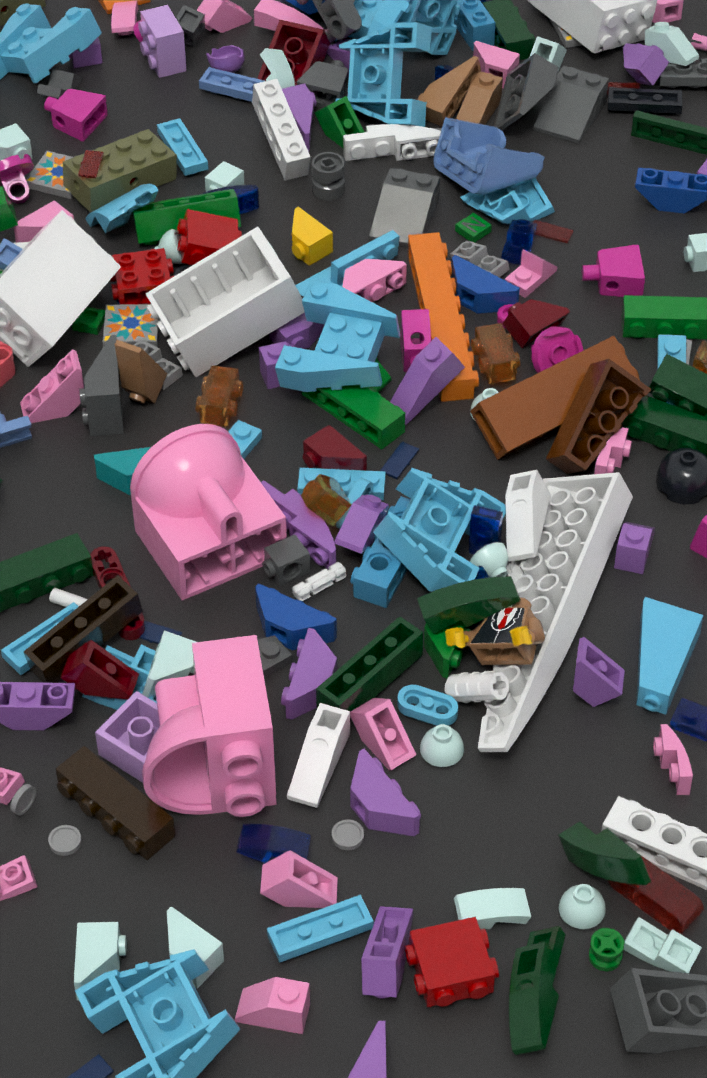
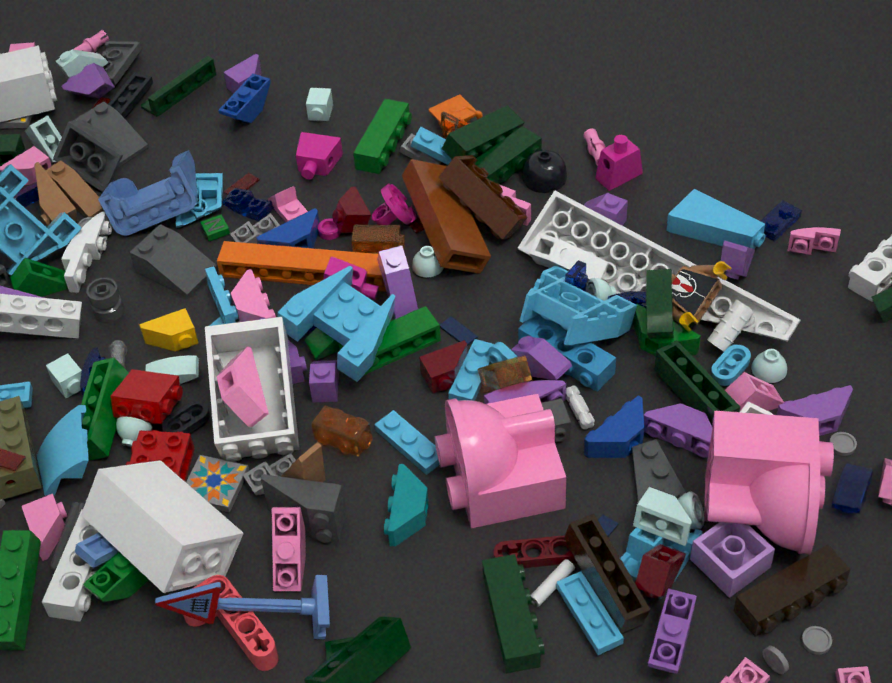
camera: 70 degrees left, 0 degrees up
(204, 281) = (242, 388): none -> bright pink slope
(264, 211) = (118, 350): none -> clear pin

